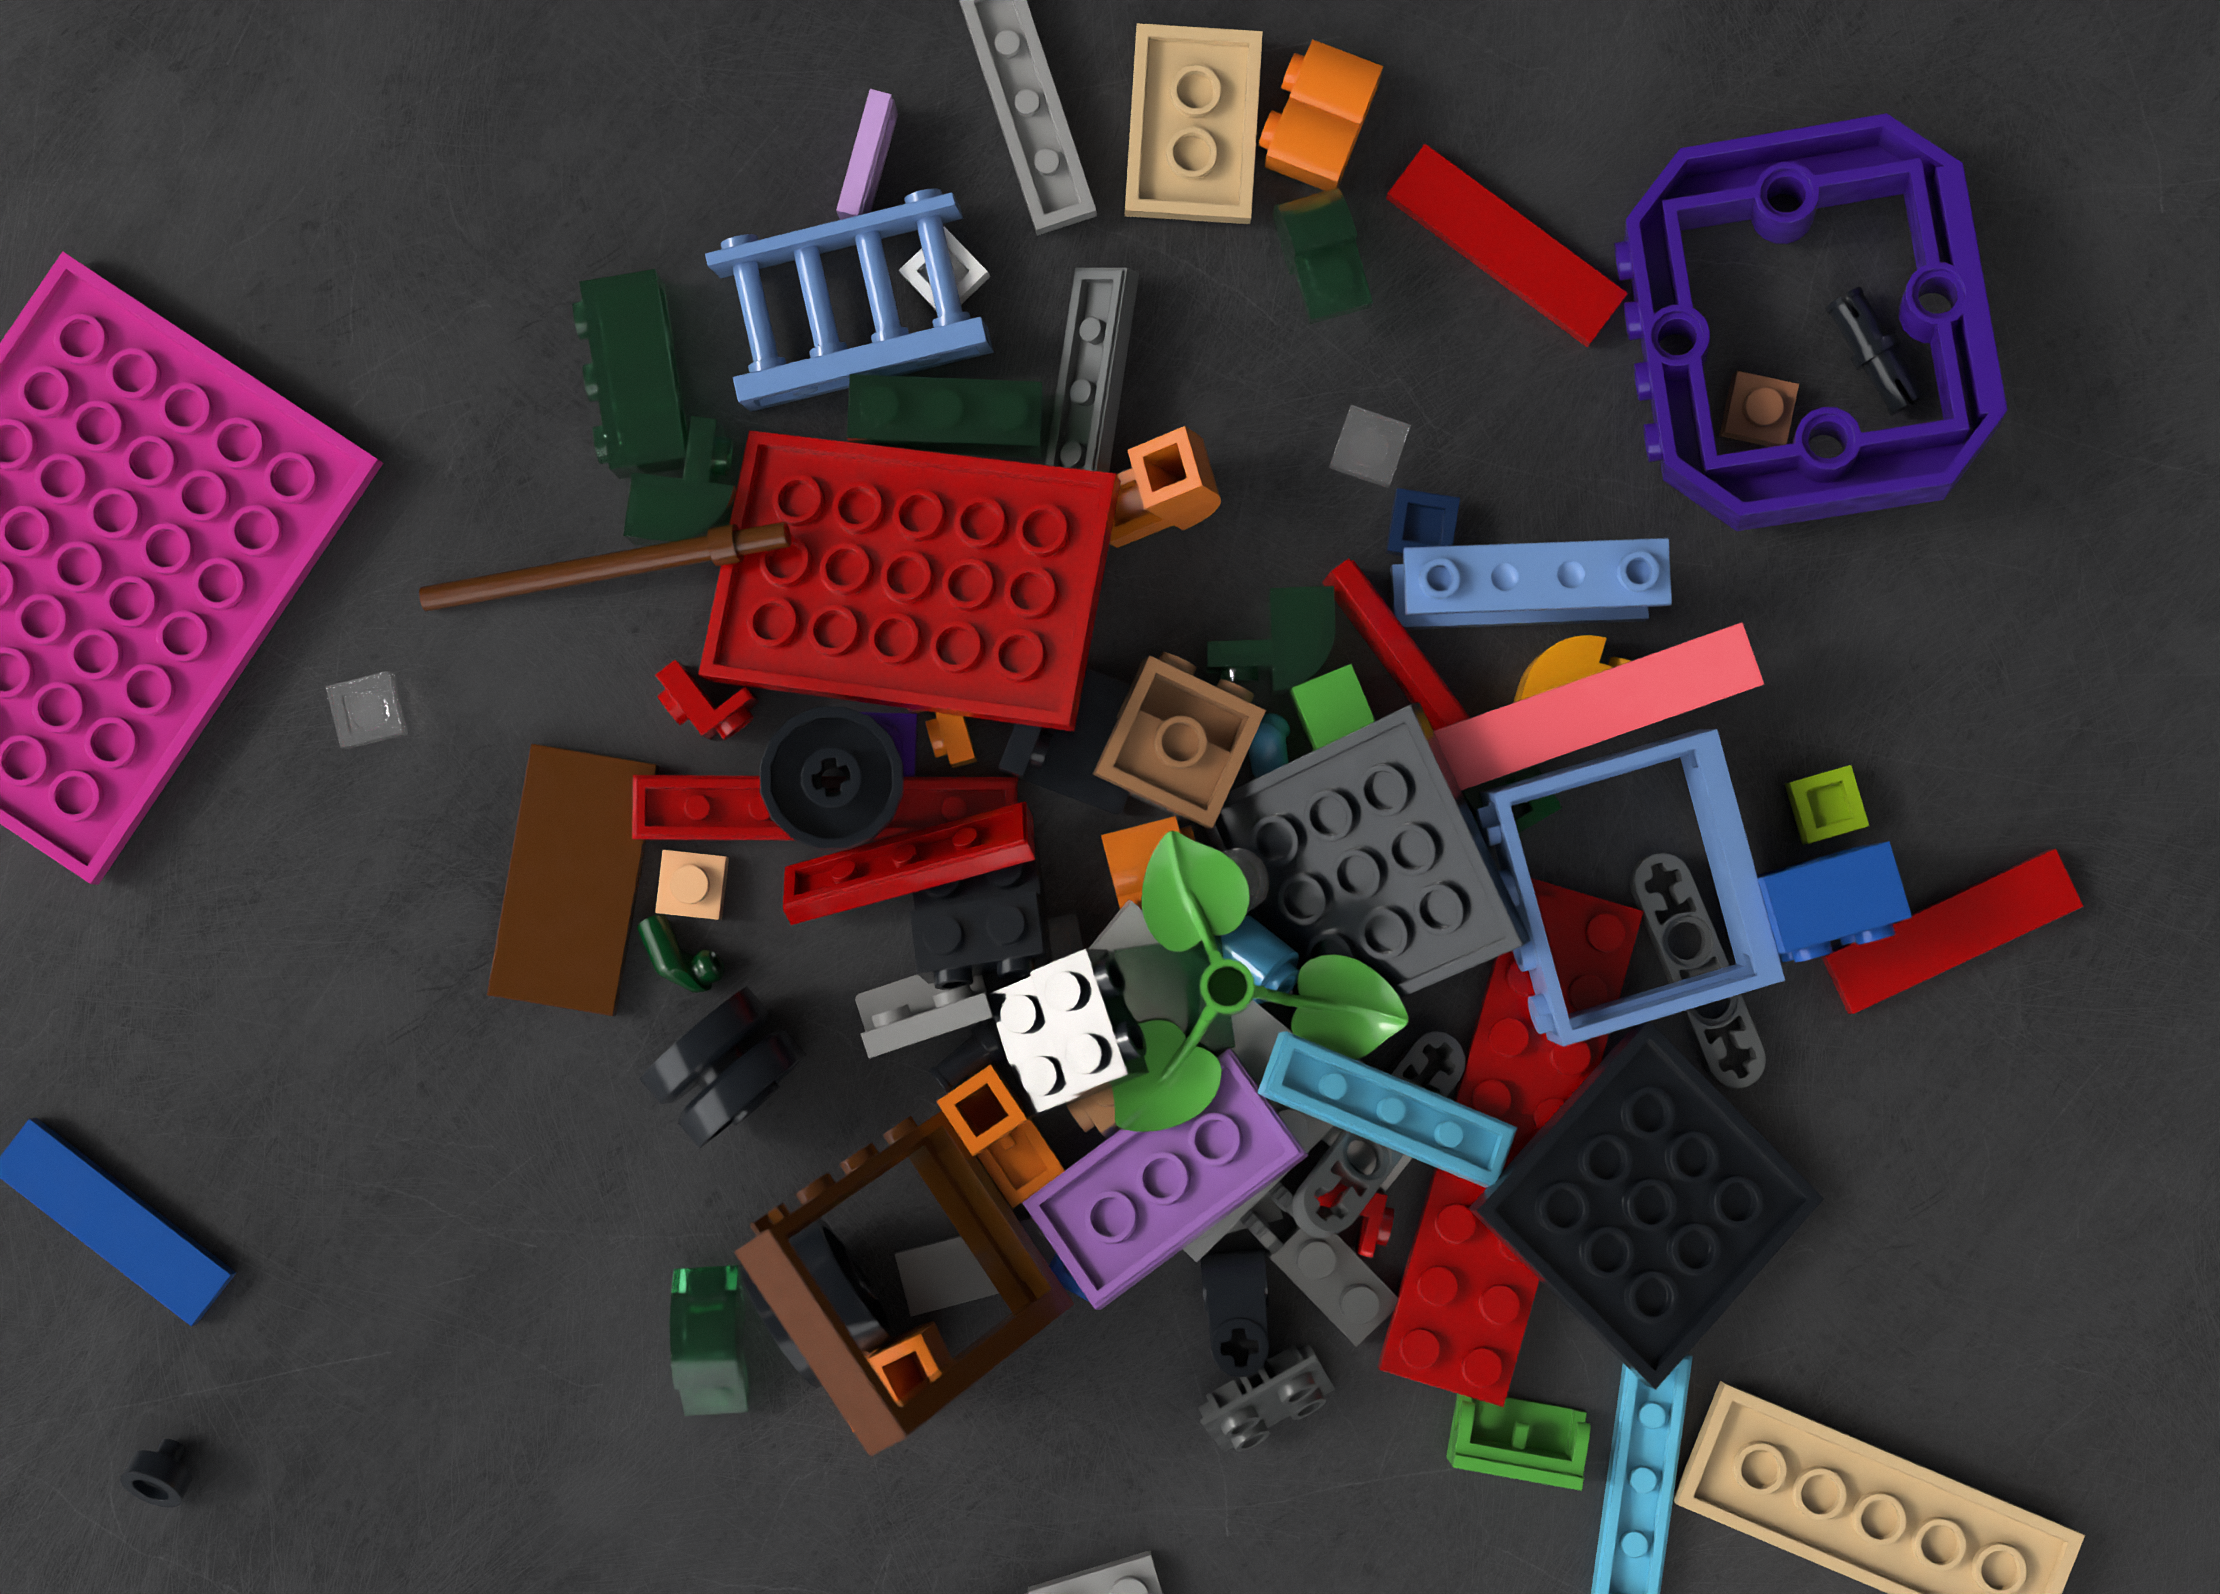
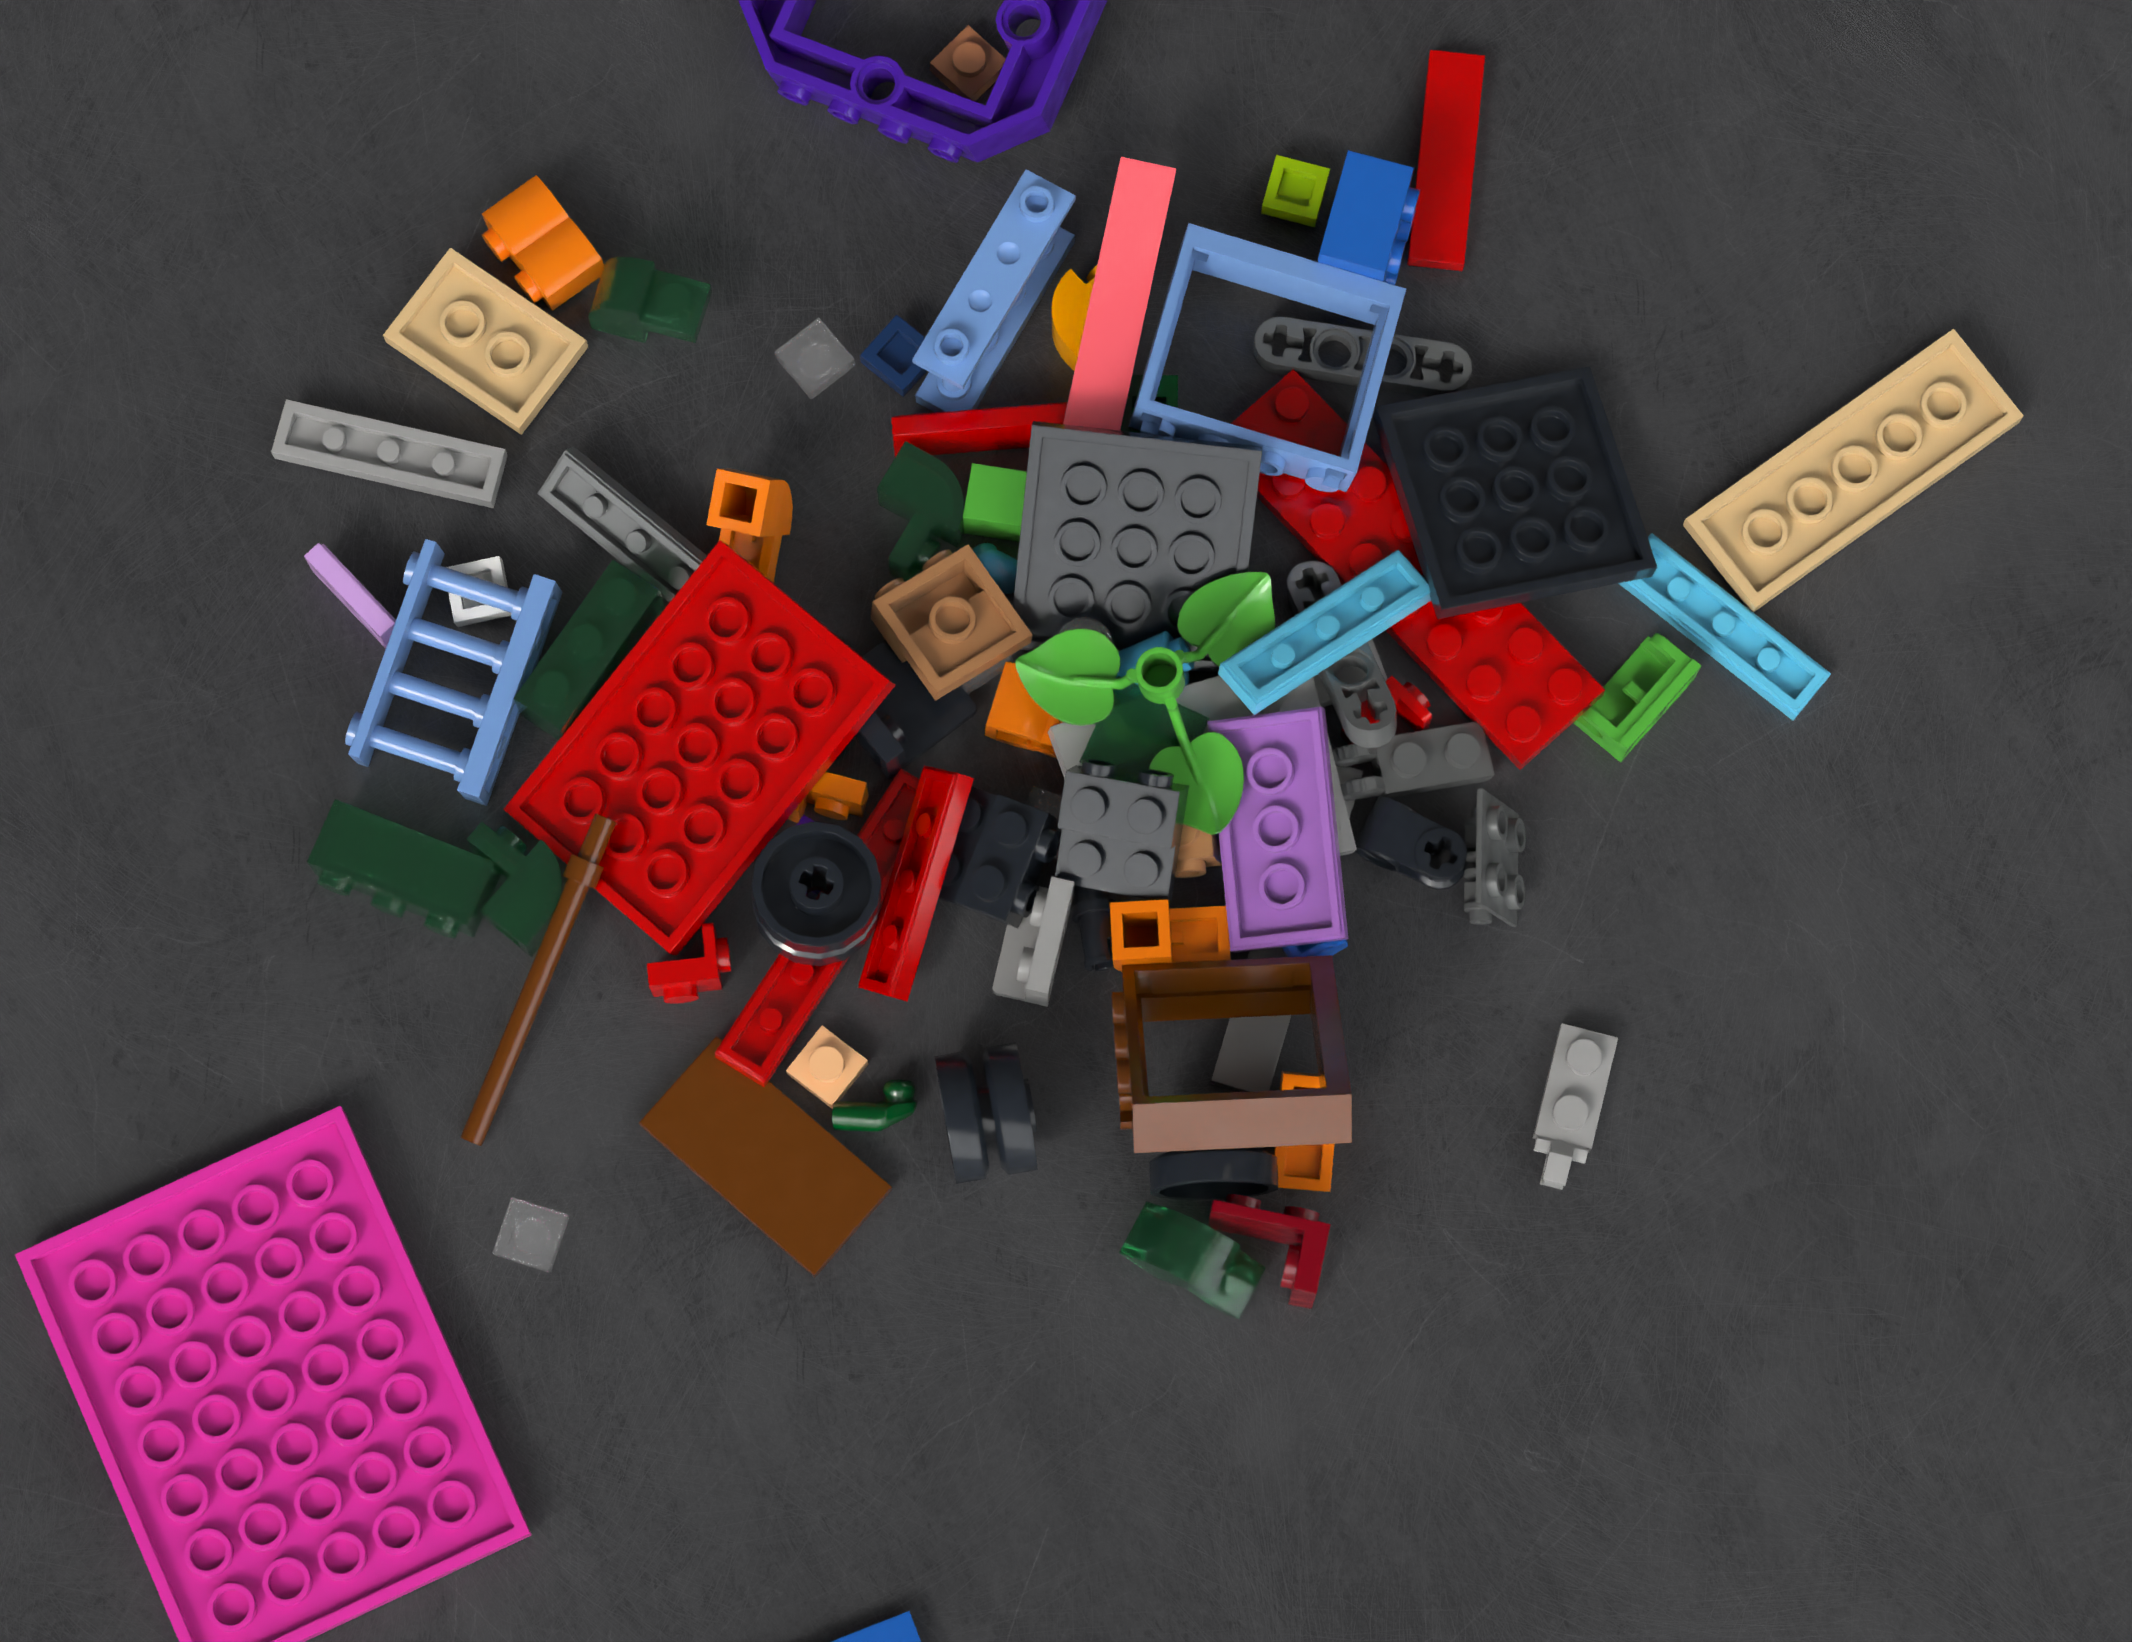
camera: 60 degrees left, 10 degrees down
(783, 1443) = (1294, 1227): none -> dark red bracket
(1506, 245) = (727, 172): red tile -> none

